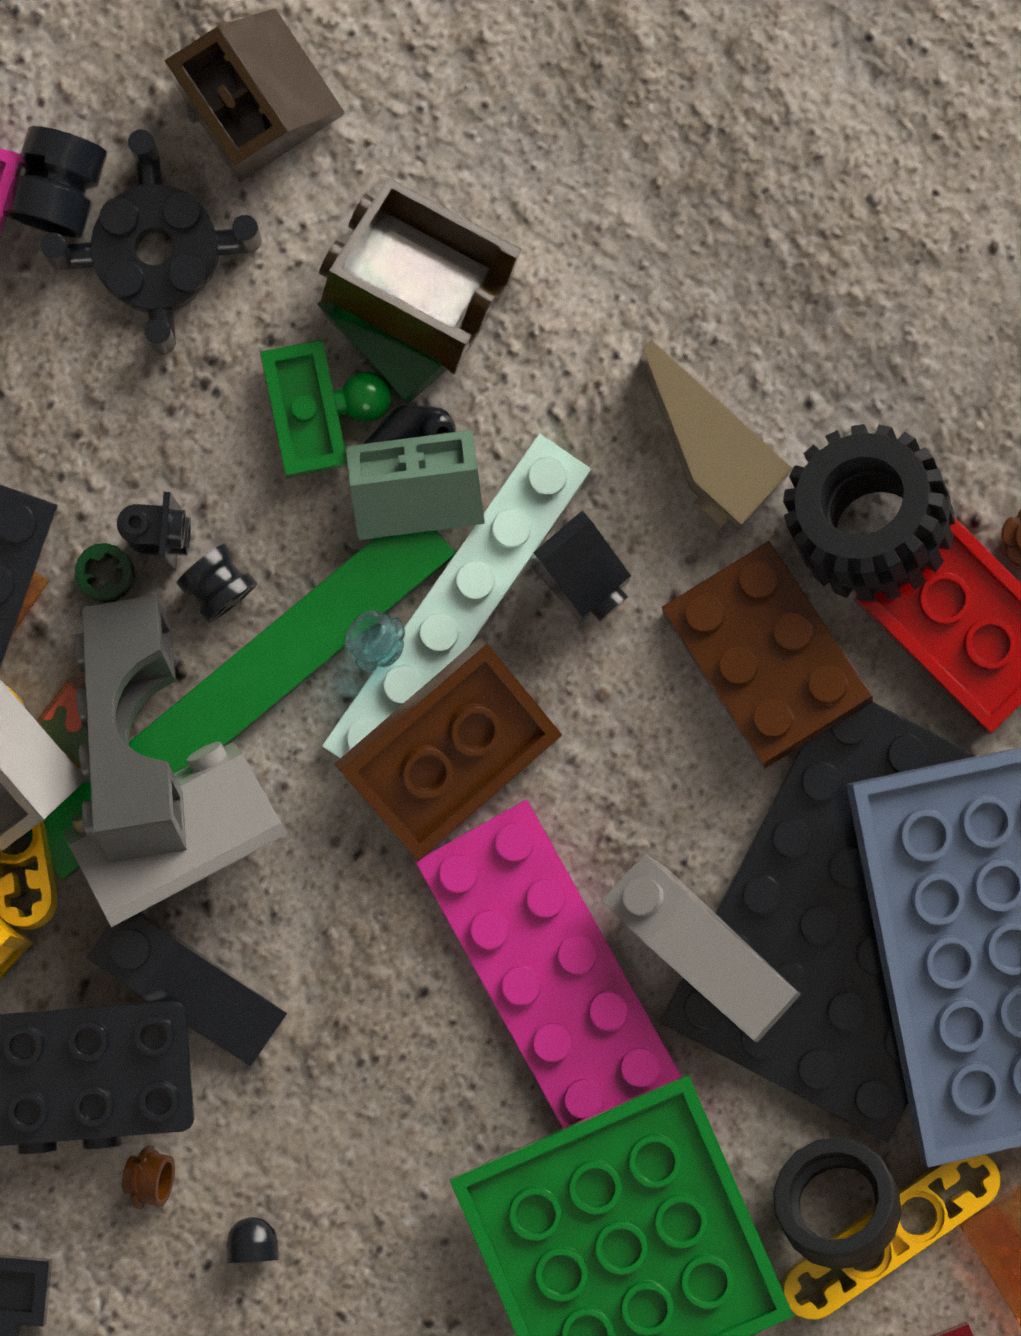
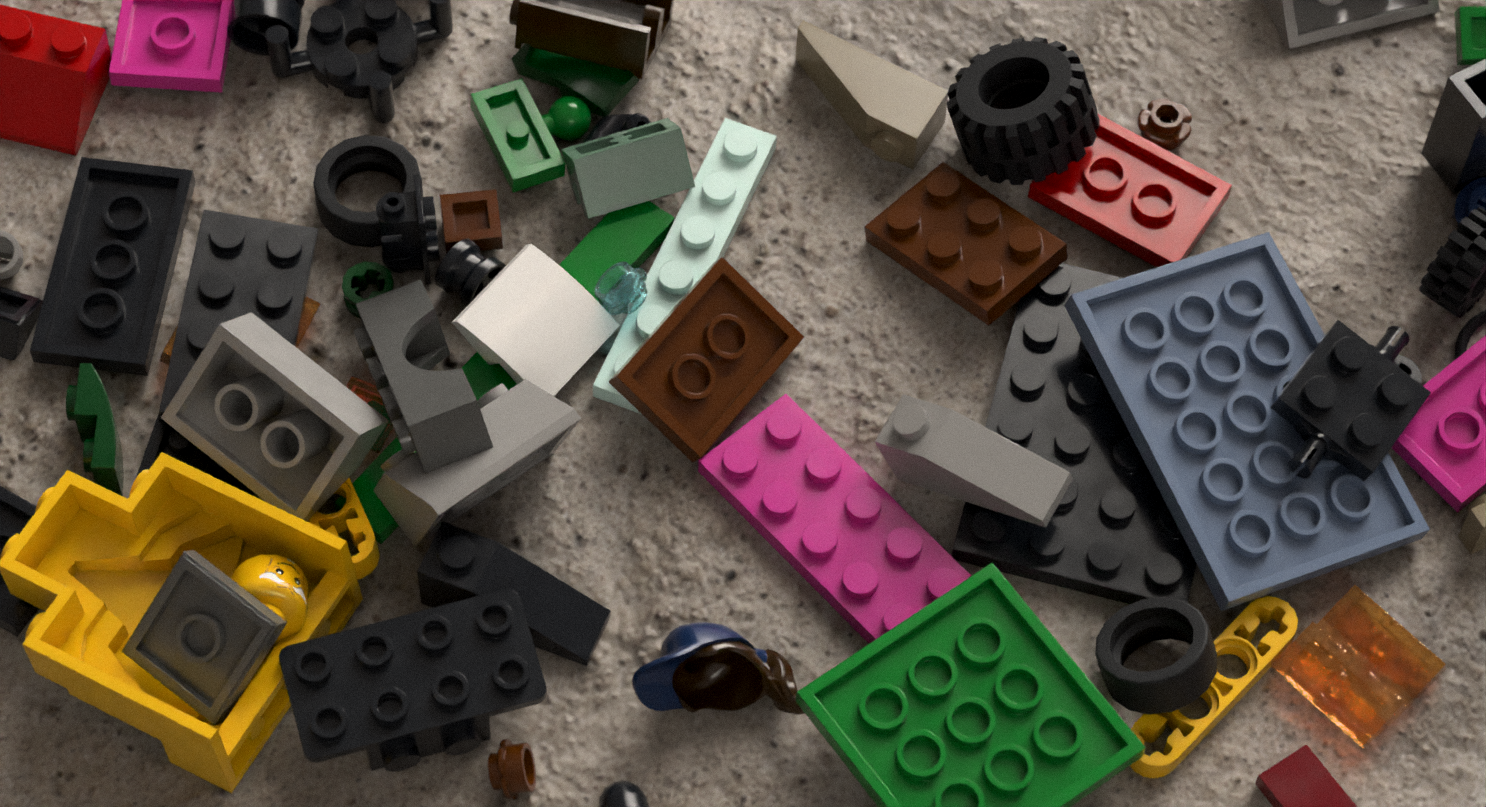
camera: 10 degrees left, 25 degrees down
(104, 405) = (353, 157): none -> black tyre
(231, 512) = (472, 217): none -> reddish brown plate
(273, 666) = (536, 321): none -> white slope
(384, 1113) = (714, 670): none -> dark brown hair
(582, 569) = (786, 197): black slope -> none

